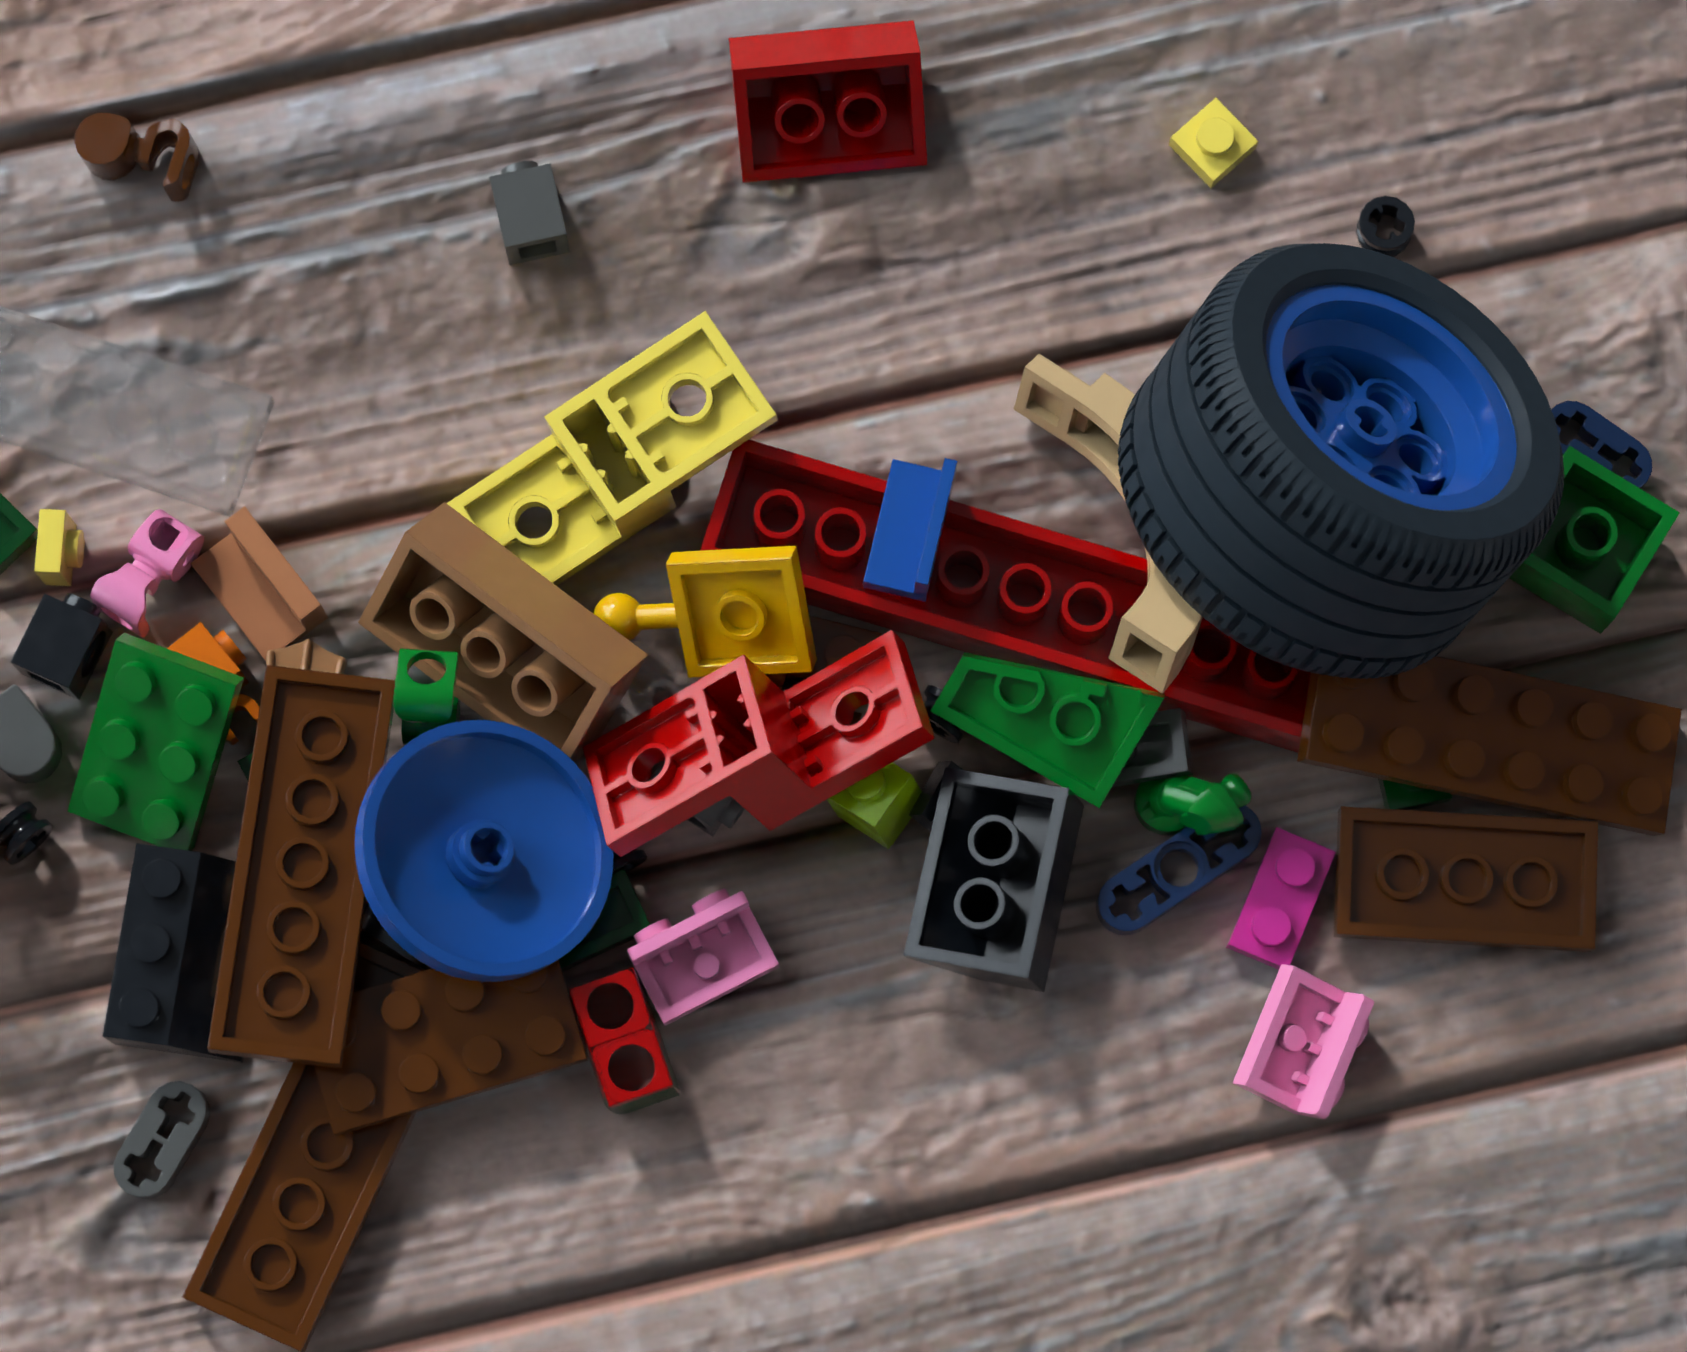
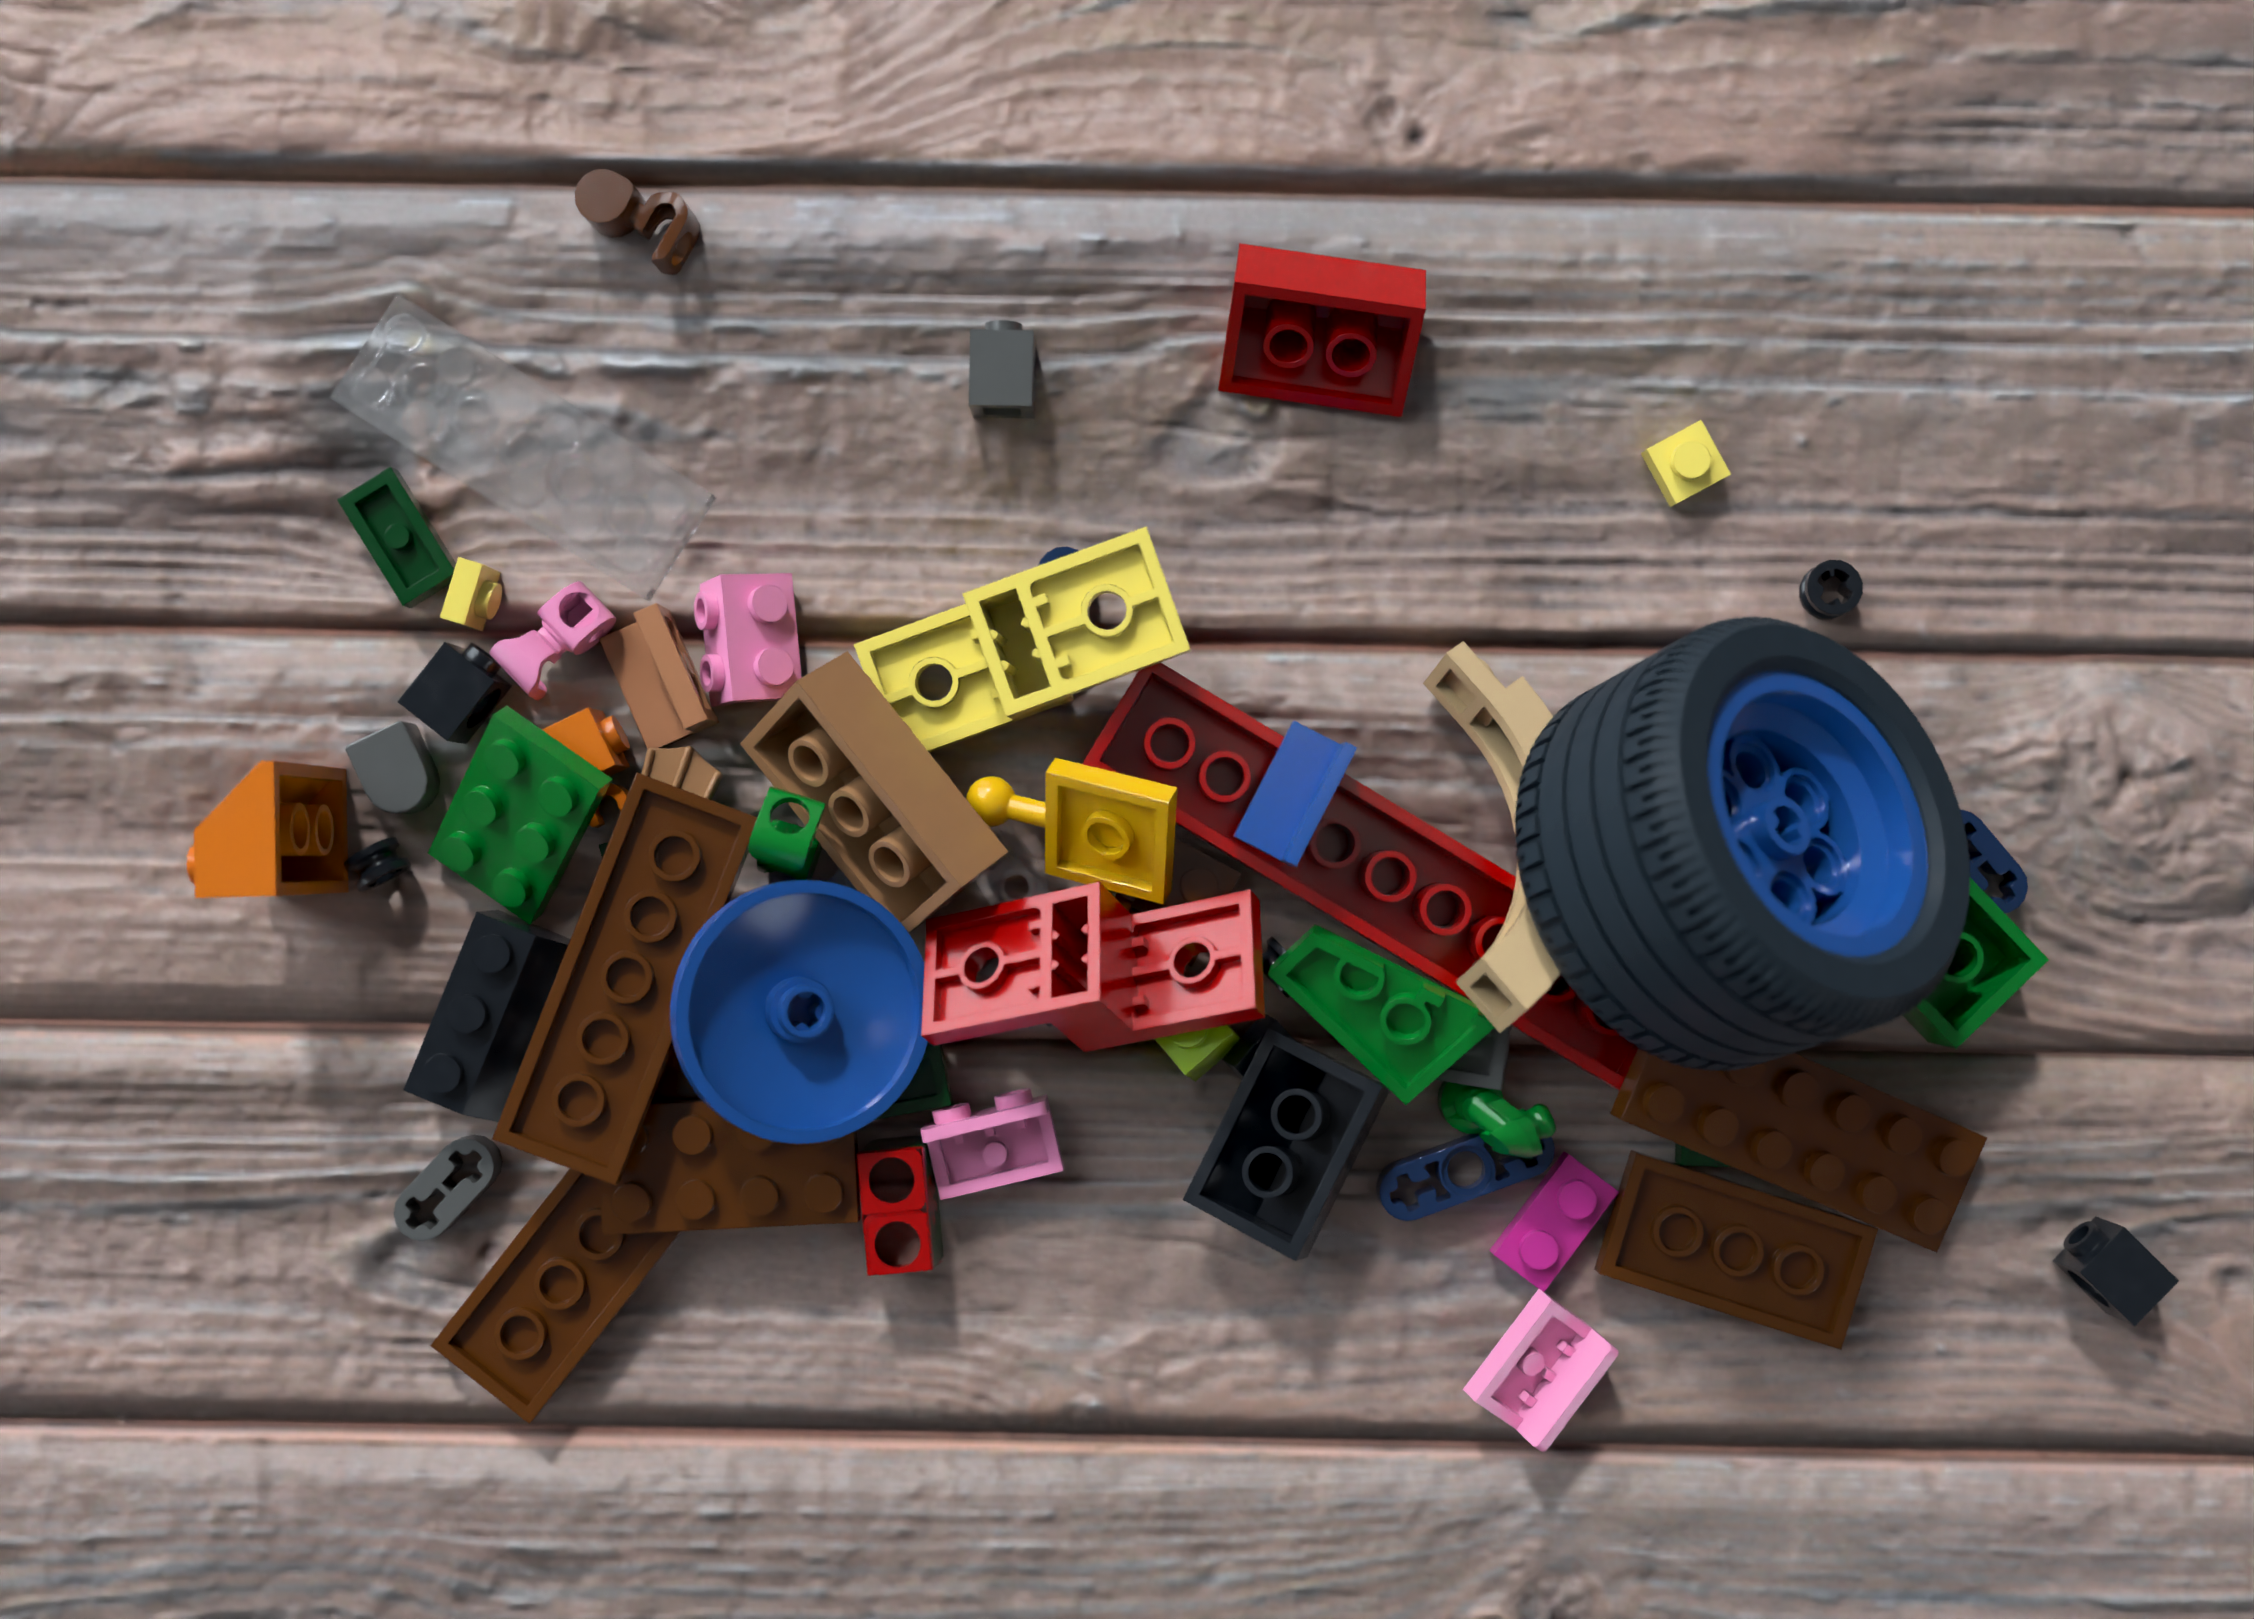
camera: 15 degrees right, 10 degrees up
(338, 523) = (748, 637): none -> bright pink bracket

